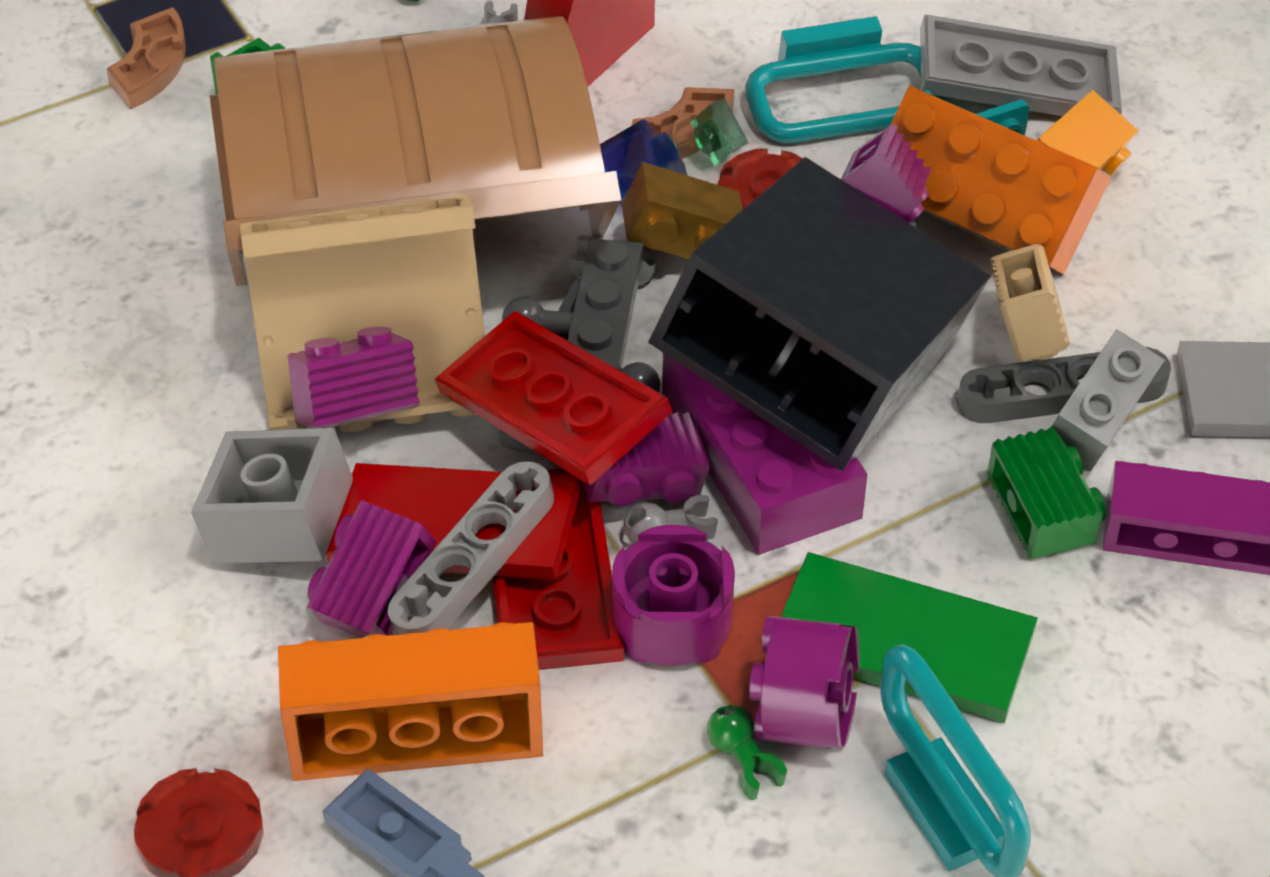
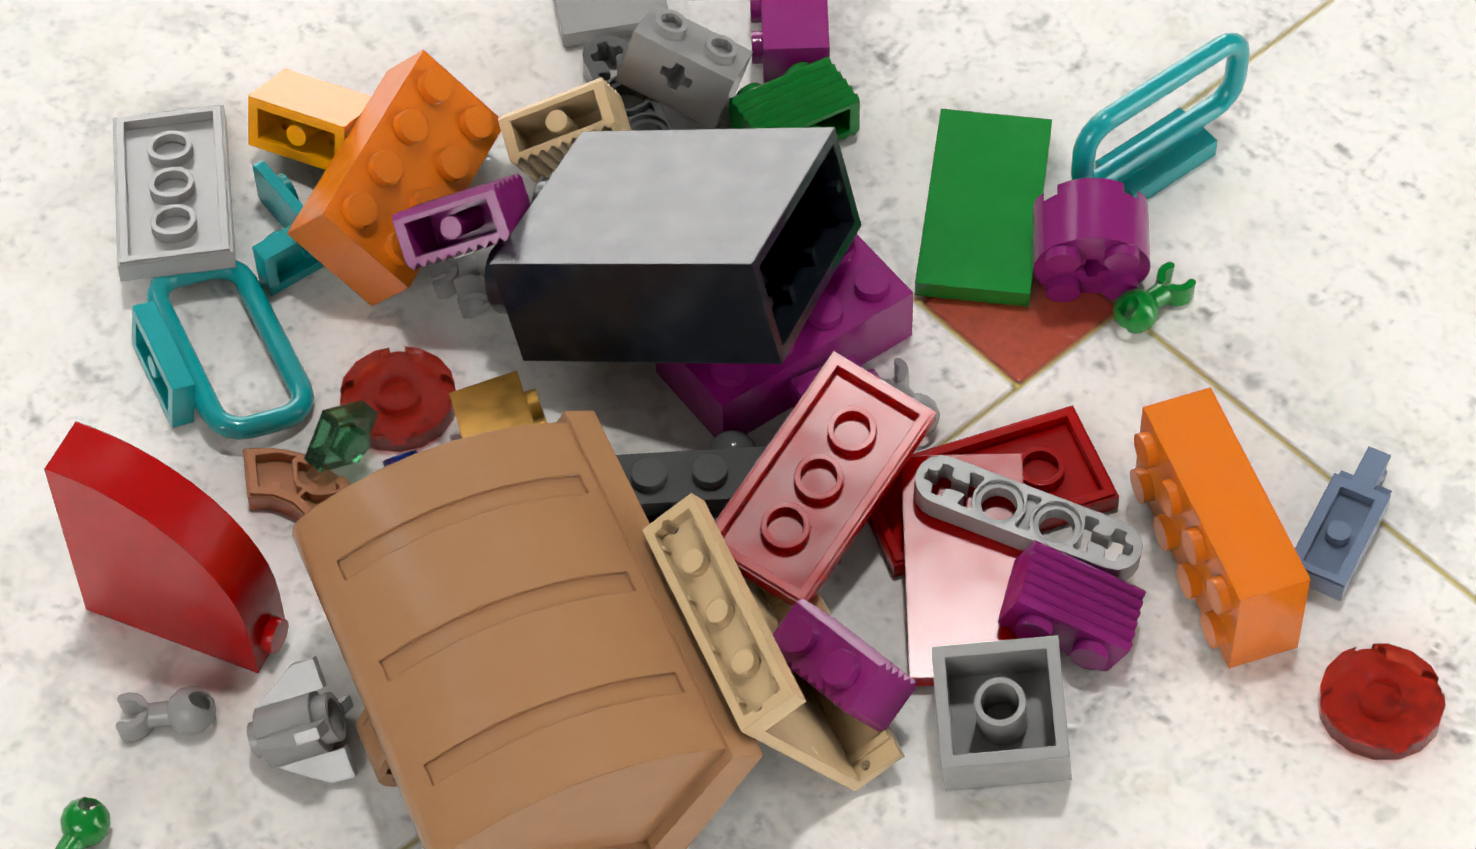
camera: 100 degrees left, 5 degrees up
(673, 596) = (1017, 359): magenta brick -> none

